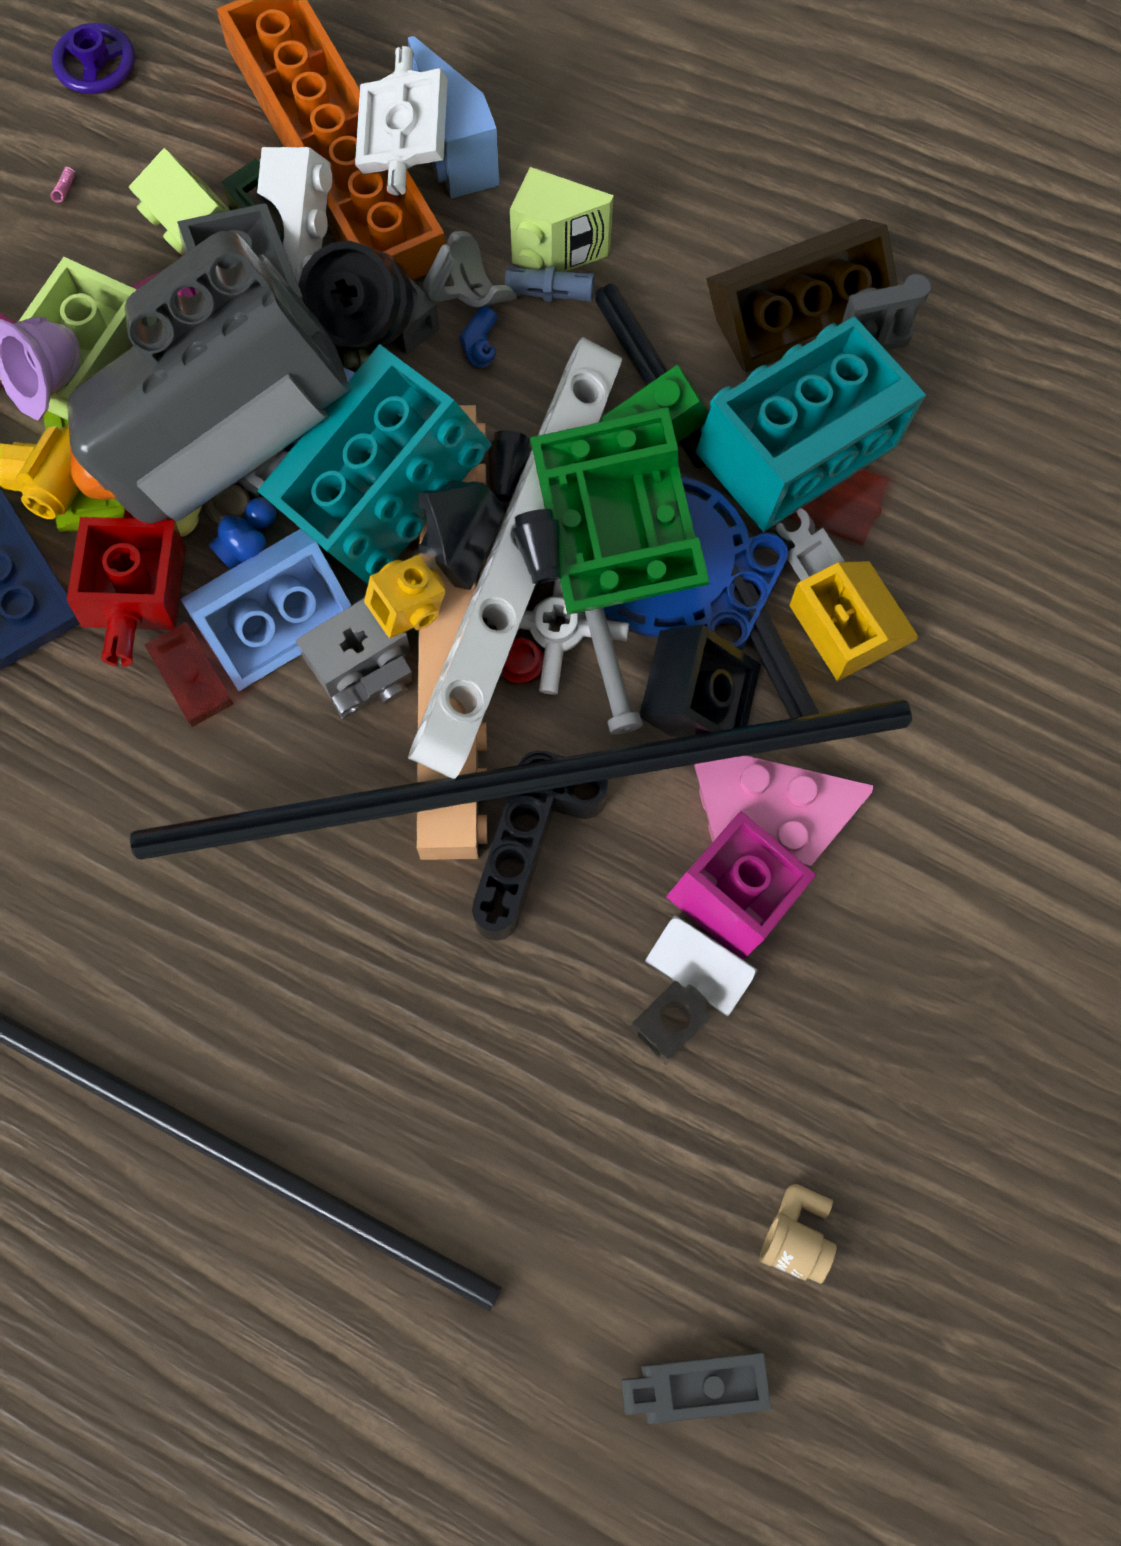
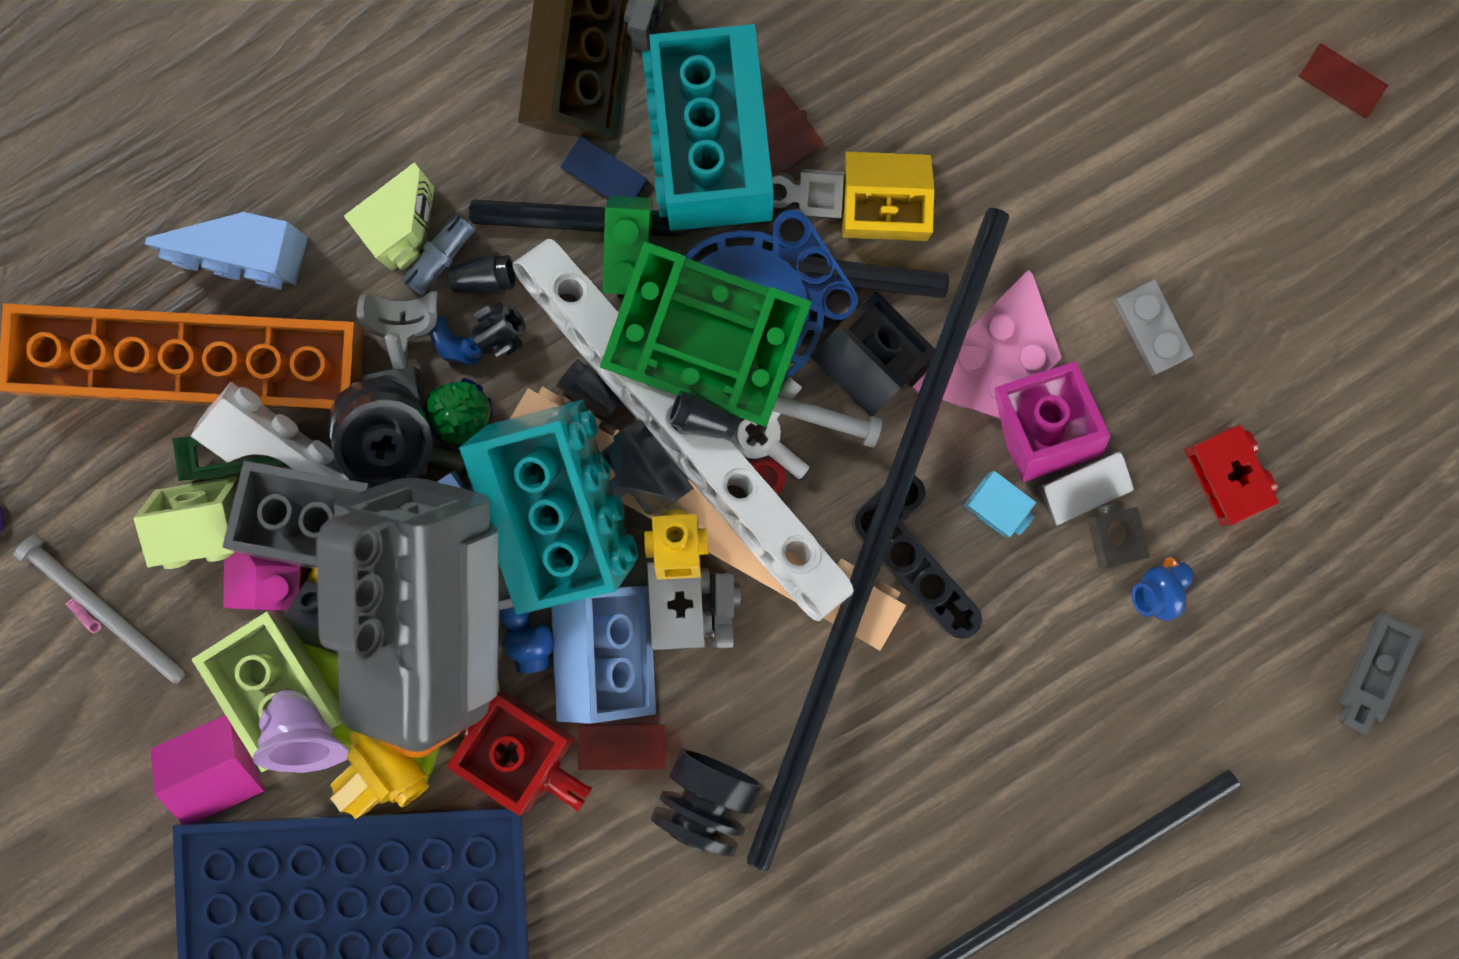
camera: 60 degrees left, 15 degrees up
(98, 118) = (32, 551): none -> light grey bar
(161, 770) = (704, 809): none -> black wheel
(401, 121) = (232, 299): white plate -> none
(427, 357) = (458, 411): none -> green piece
(513, 361) = (498, 329): none -> black gear
(554, 327) = (483, 275): none -> black cone
(630, 888) = (1001, 505): none -> medium azure brick
(643, 1099) = (1163, 590): none -> blue animal
(710, 367) = (602, 171): none -> dark blue piece
(780, 1118) = (1214, 460): none -> red brick
(795, 1246) = (1326, 545): tan piece -> none
(898, 941) = (1153, 328): none -> light grey plate

